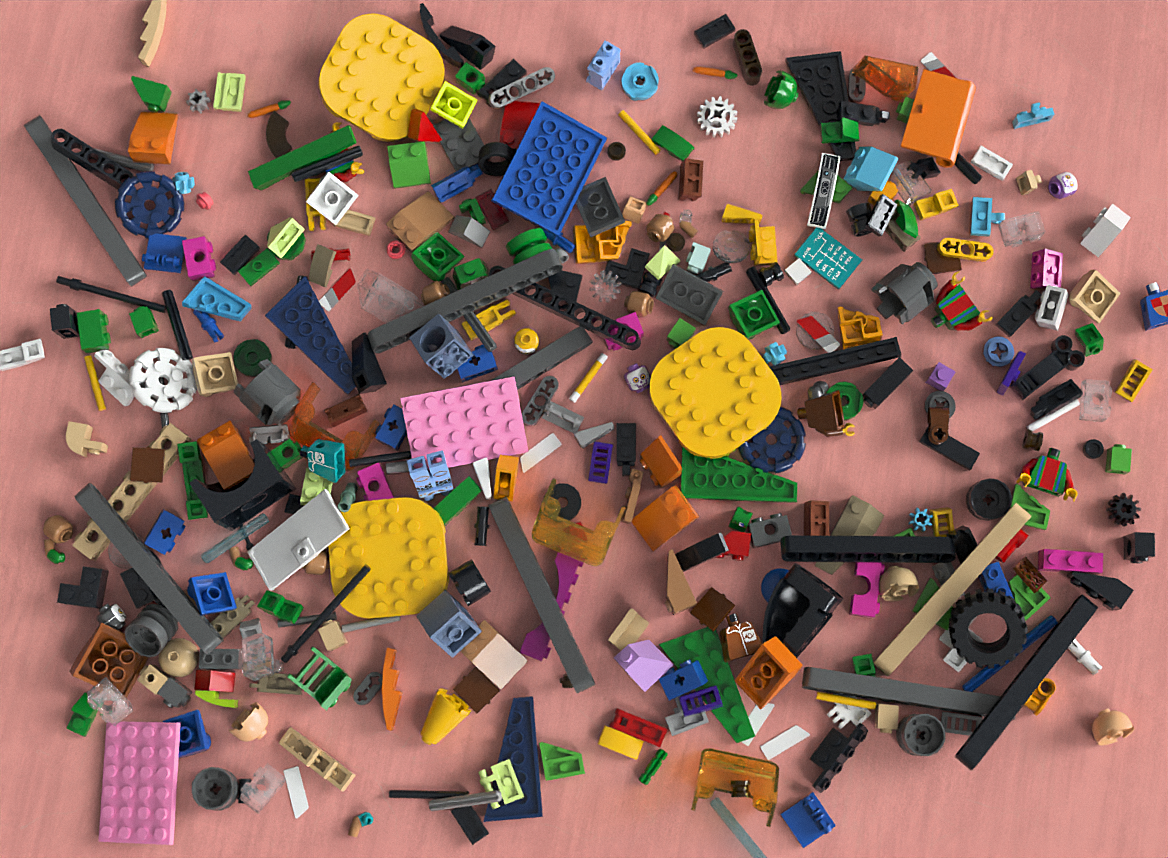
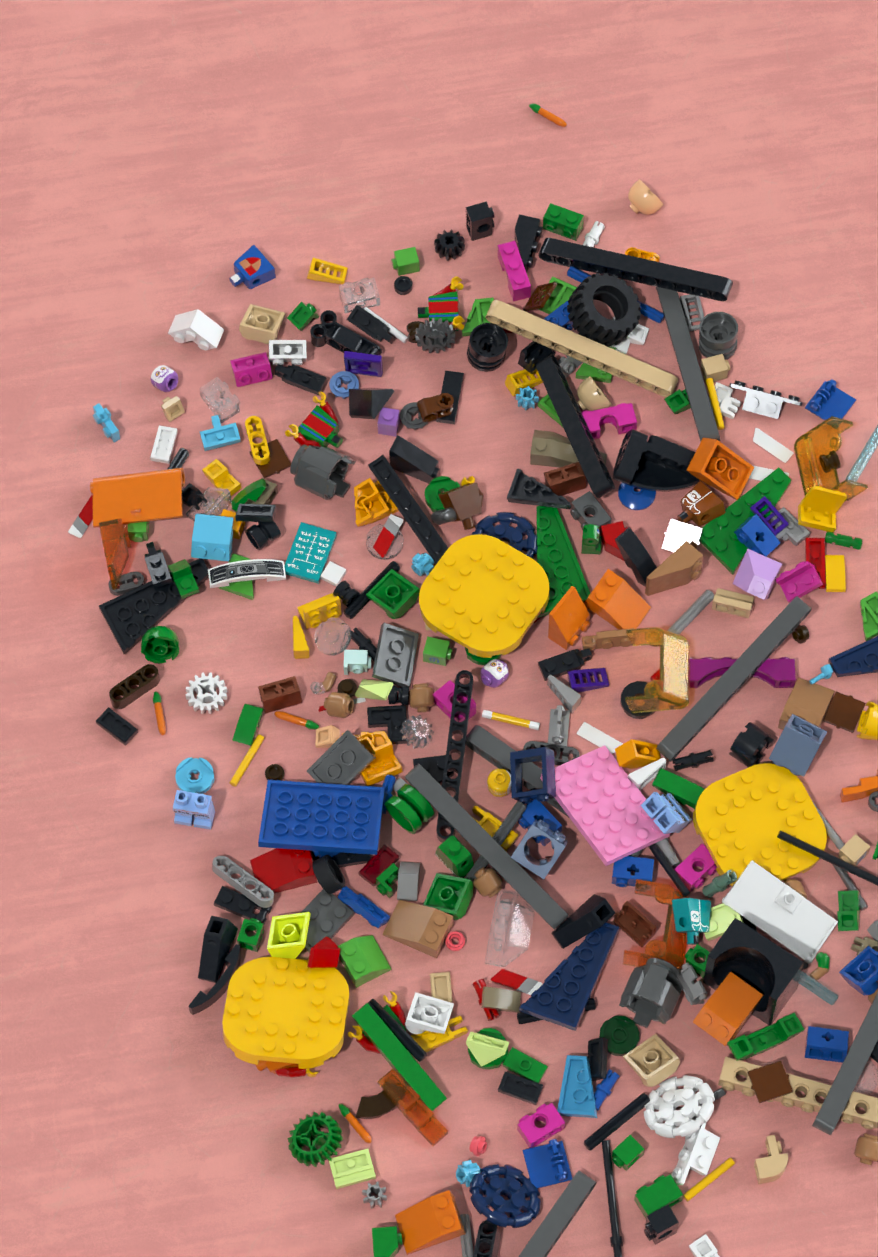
camera: 115 degrees left, 15 degrees down
(237, 329) = (598, 1058): none -> black plate
(260, 60) = (321, 1144): none -> green gear
(260, 155) = (412, 1107): none -> clear orange slope
(511, 379) = (548, 774): none -> dark blue window
(522, 690) = (826, 674): none -> medium azure hand
(620, 702) = (799, 580): none -> dark pink bracket
(628, 580) = (692, 612): none -> light grey axle
(688, 753) = (820, 508): none -> yellow bracket
(815, 482) = (529, 491): none -> black wing
(969, 365) = (367, 402): none -> black slope
(1019, 453) = (435, 335): none -> dark grey gear
(1108, 636) = (563, 222): none -> green brick

